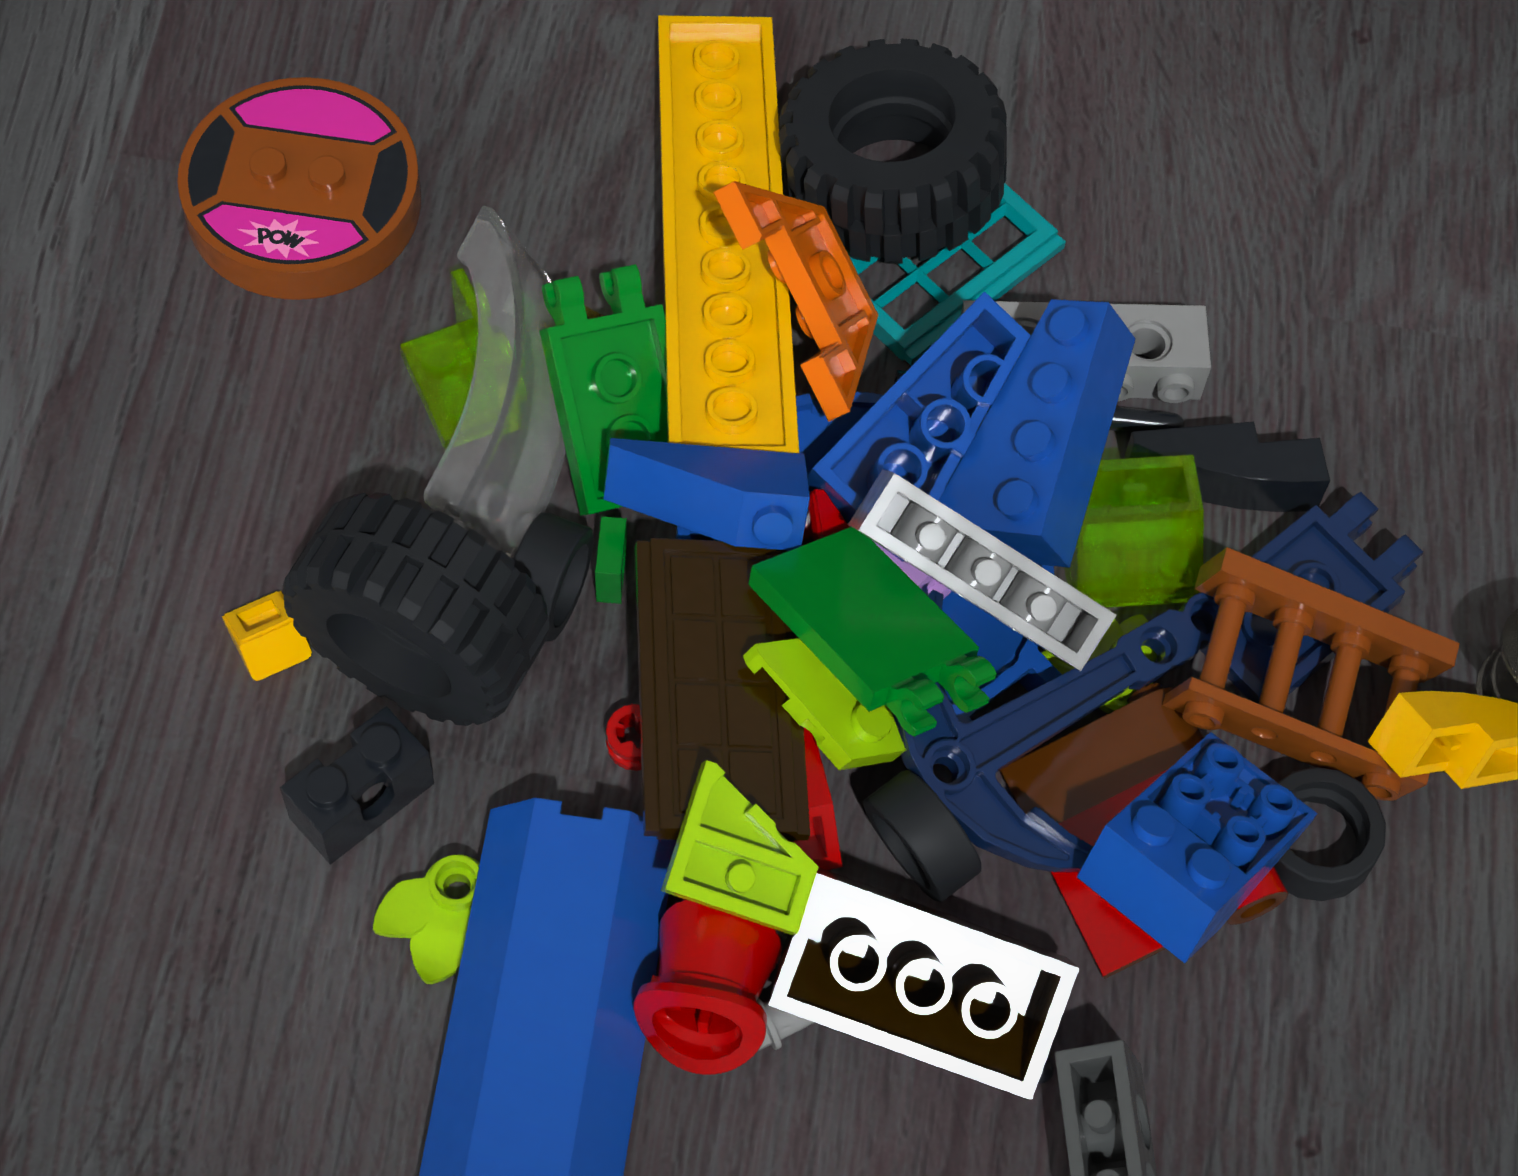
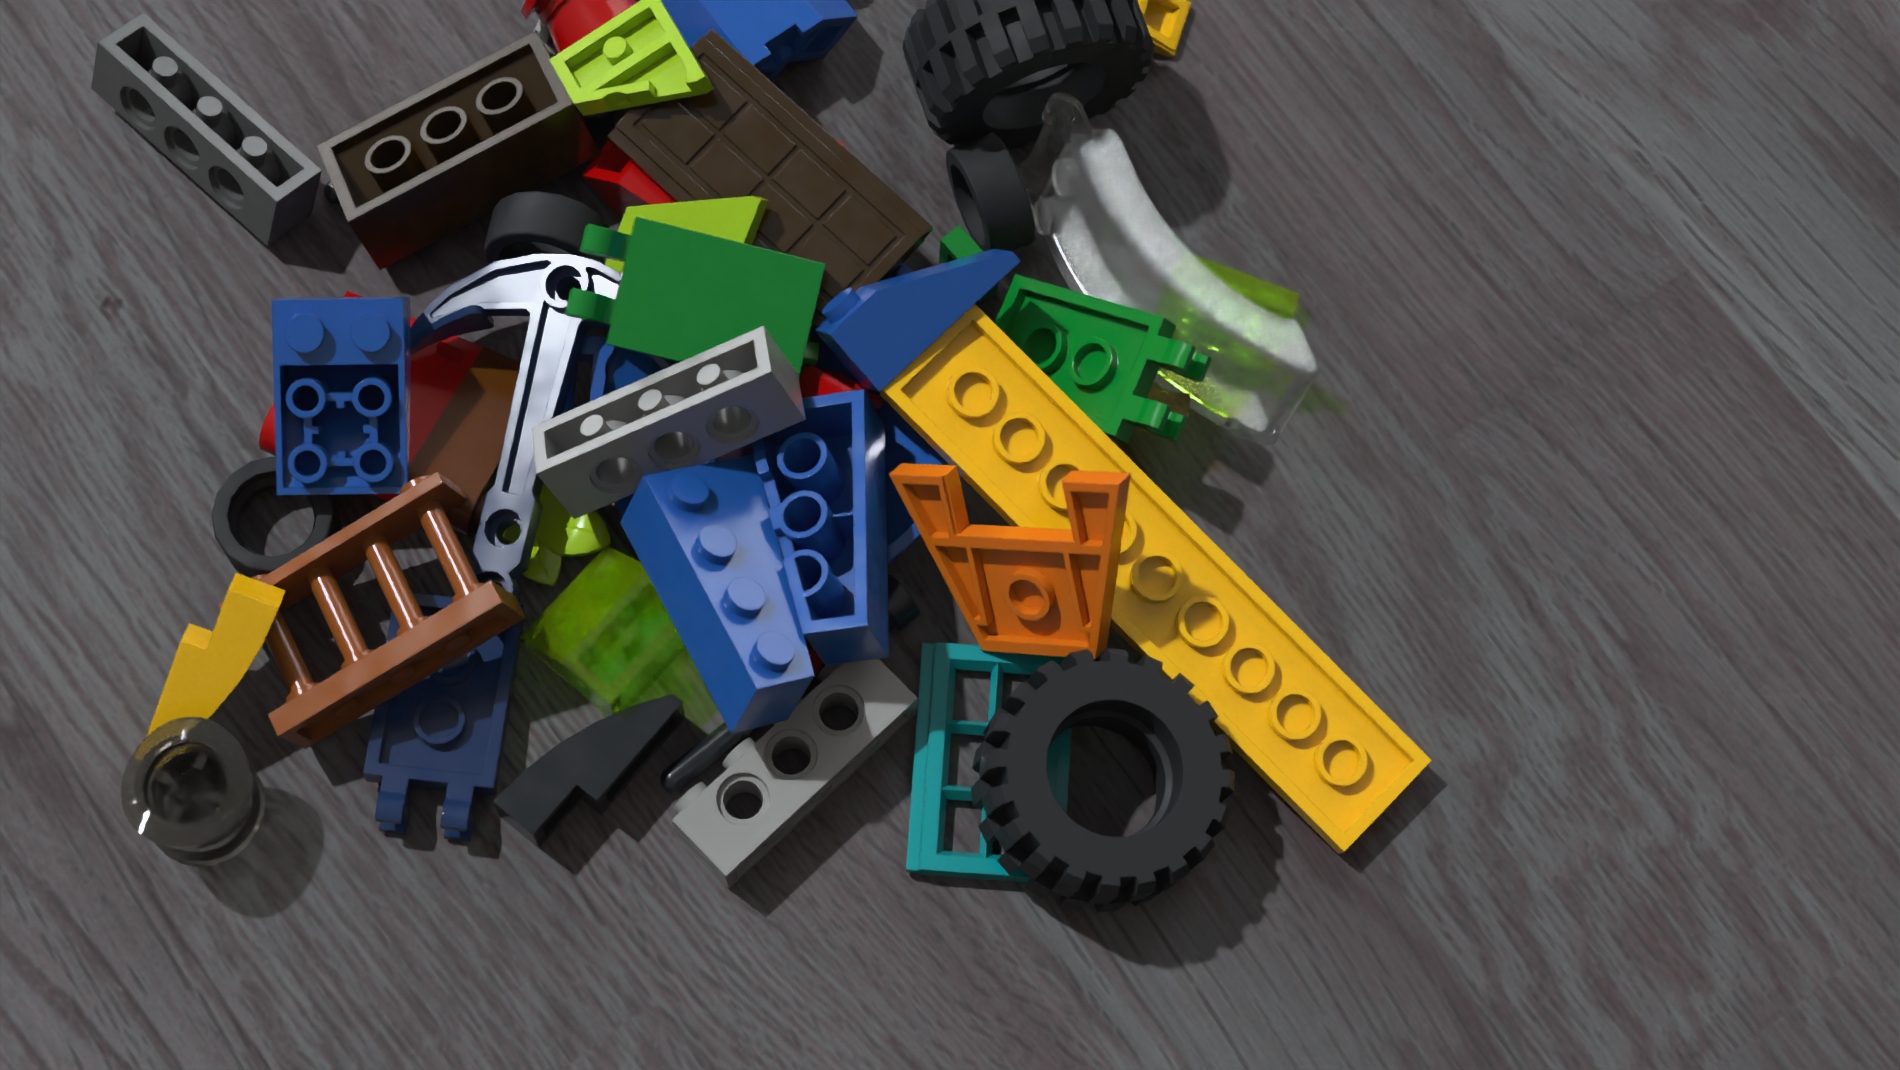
camera: 135 degrees right, 10 degrees up
(300, 188) = (1519, 350): brick -> none

